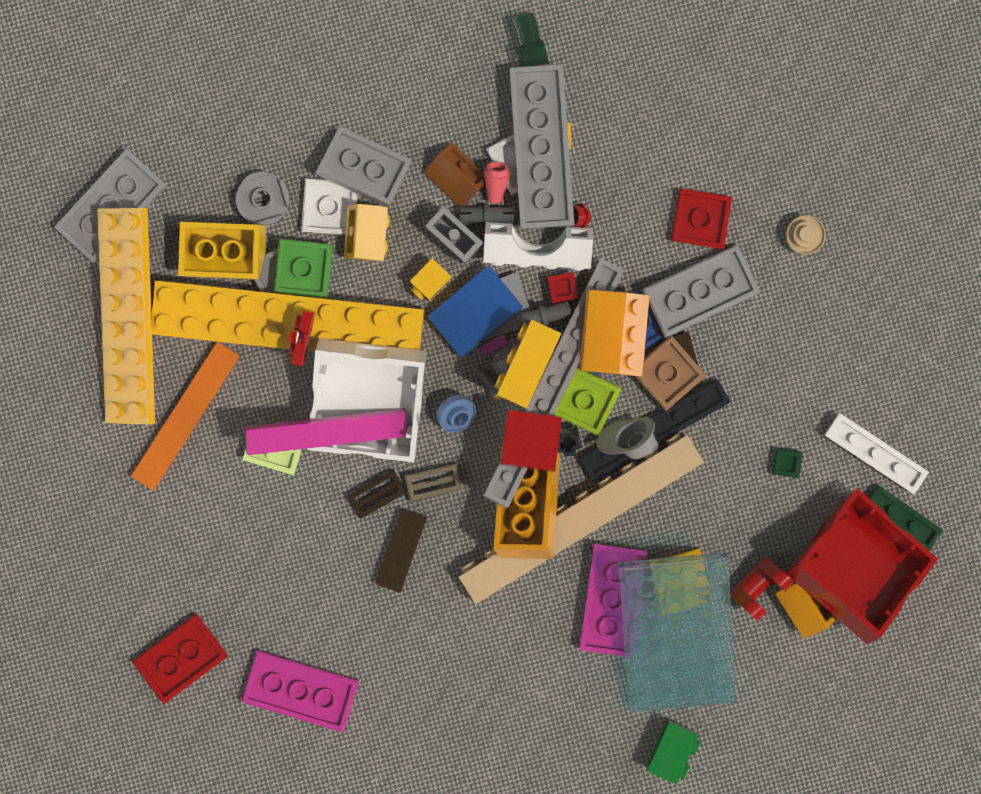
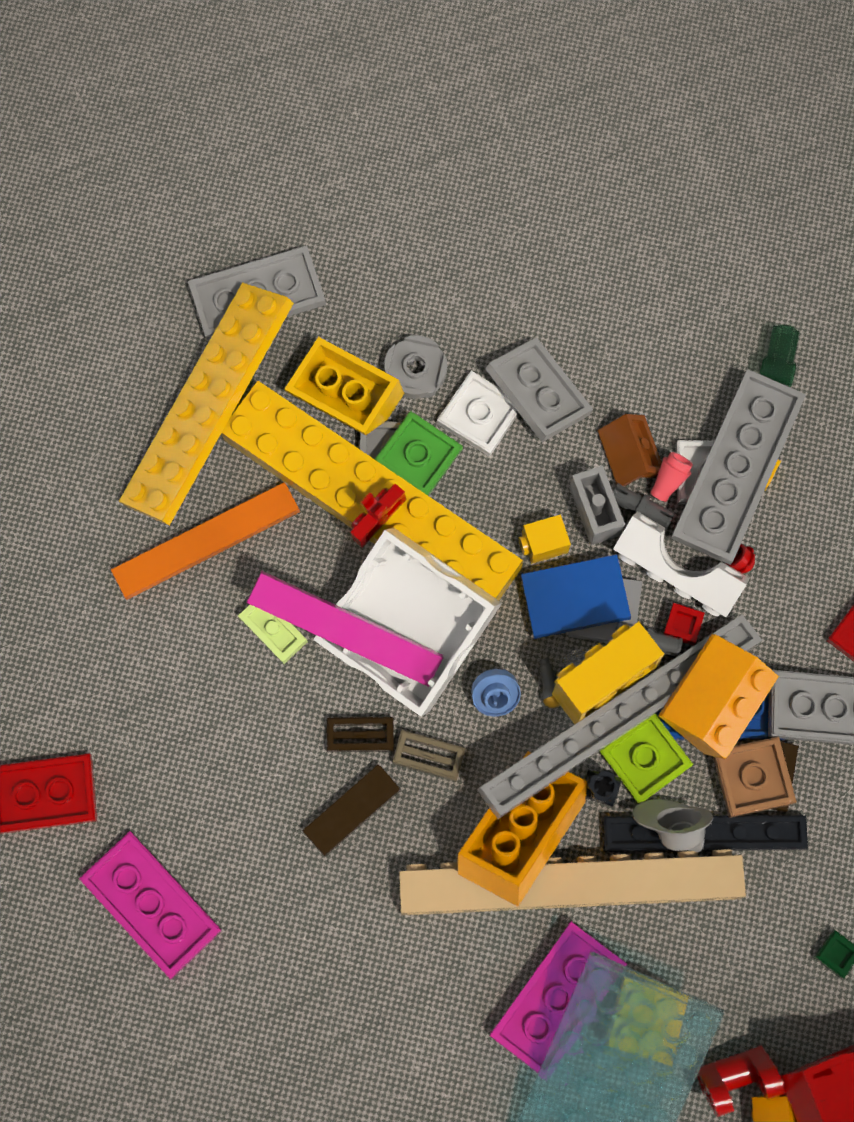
camera: 30 degrees right, 15 degrees down
(366, 232) = (504, 454): yellow brick -> none
(493, 345) = (575, 641): magenta tile -> none
(531, 441) = (565, 757): red tile -> none

